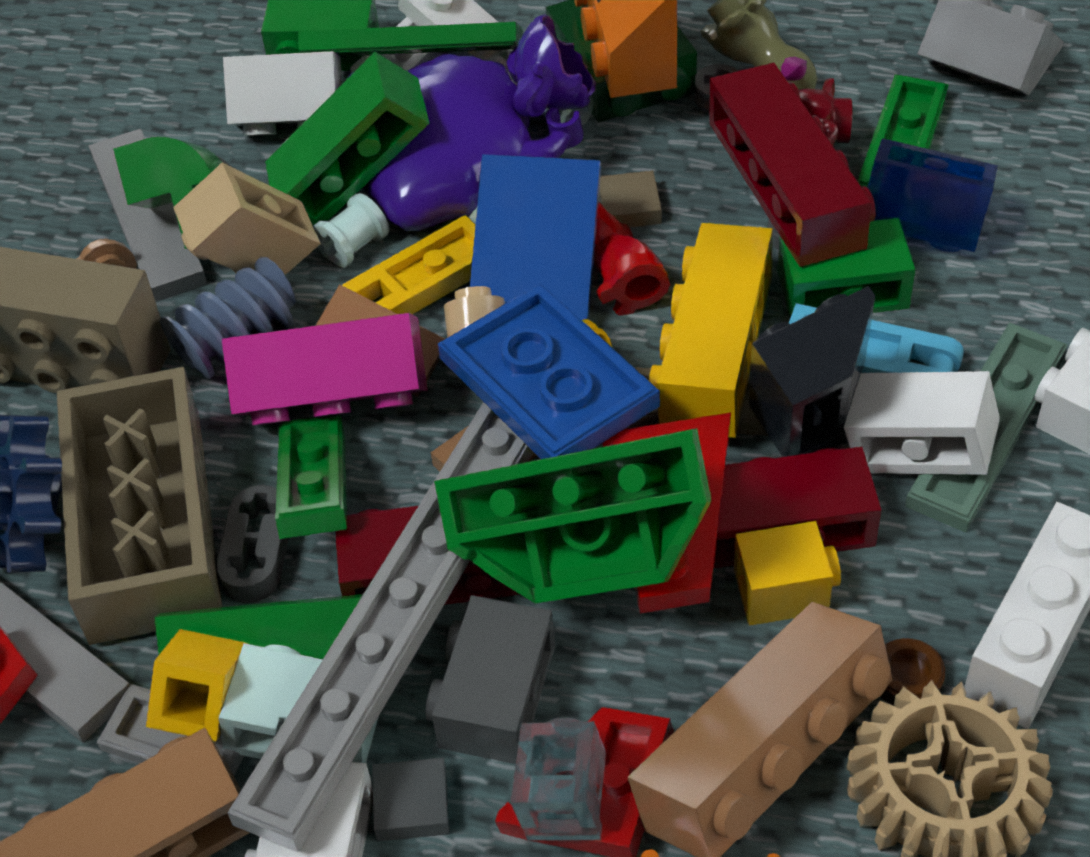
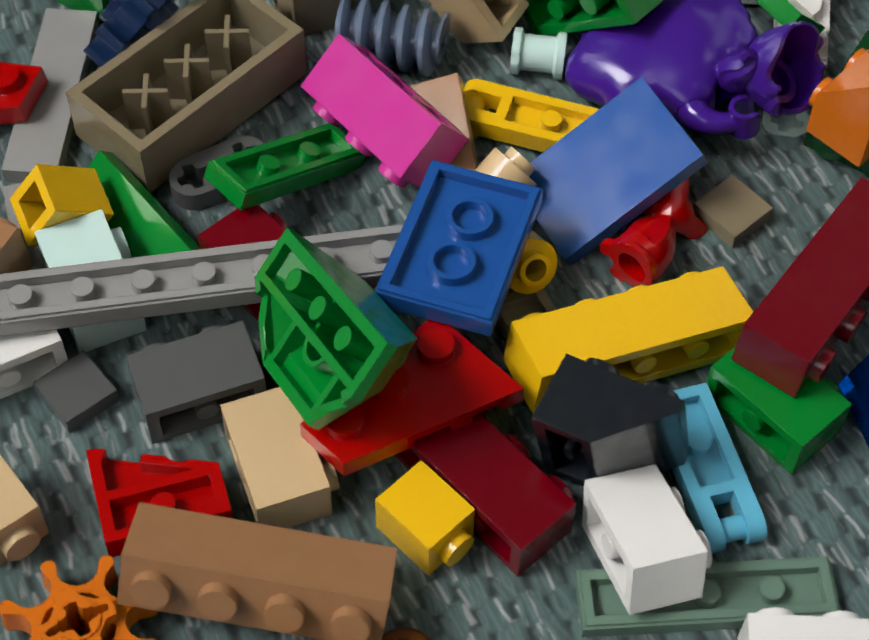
camera: 50 degrees right, 5 degrees up
(559, 780) = (121, 461): clear light blue brick -> none
(633, 659) = (276, 465): none -> tan brick

